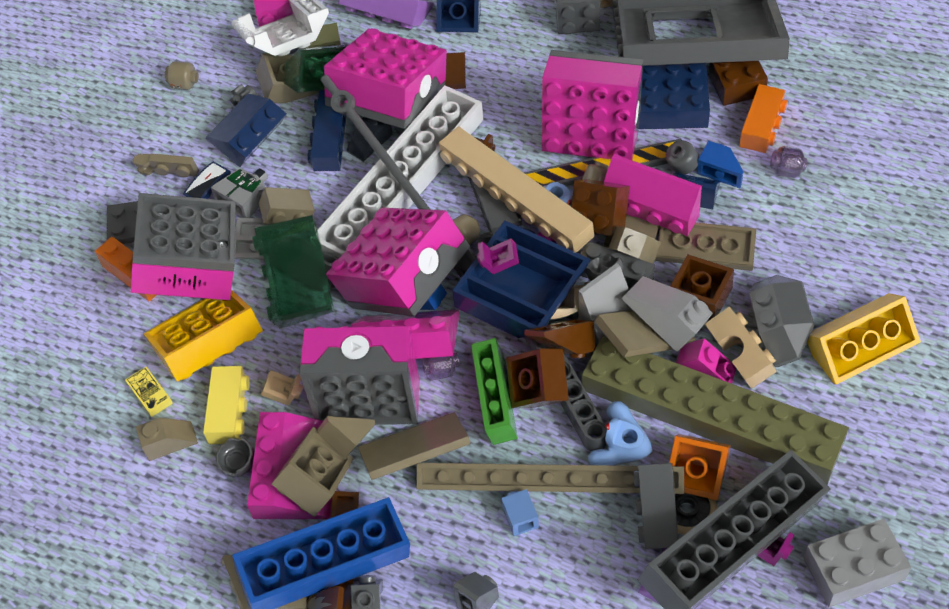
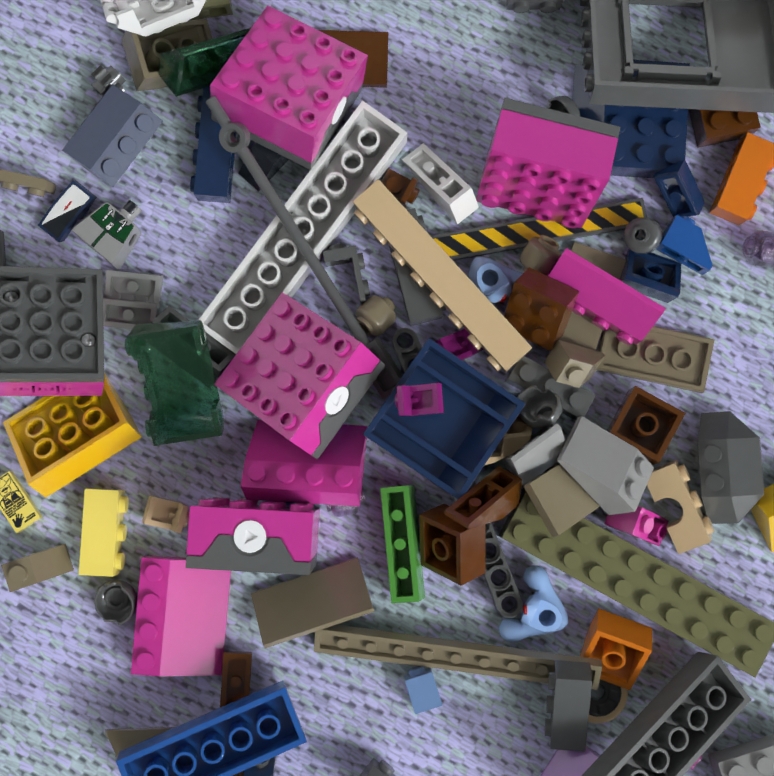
camera: 10 degrees left, 30 degrees up
(181, 75) = (25, 36): dark tan head -> none
(285, 204) = (165, 266): dark tan brick -> none
(312, 473) = (203, 636): dark tan slope -> none
(344, 432) = (240, 589): dark tan slope -> none
(436, 193) = (338, 255): none -> dark grey bracket
(515, 141) = (442, 183): none -> white slope
(708, 124) = (680, 190): none -> dark blue slope

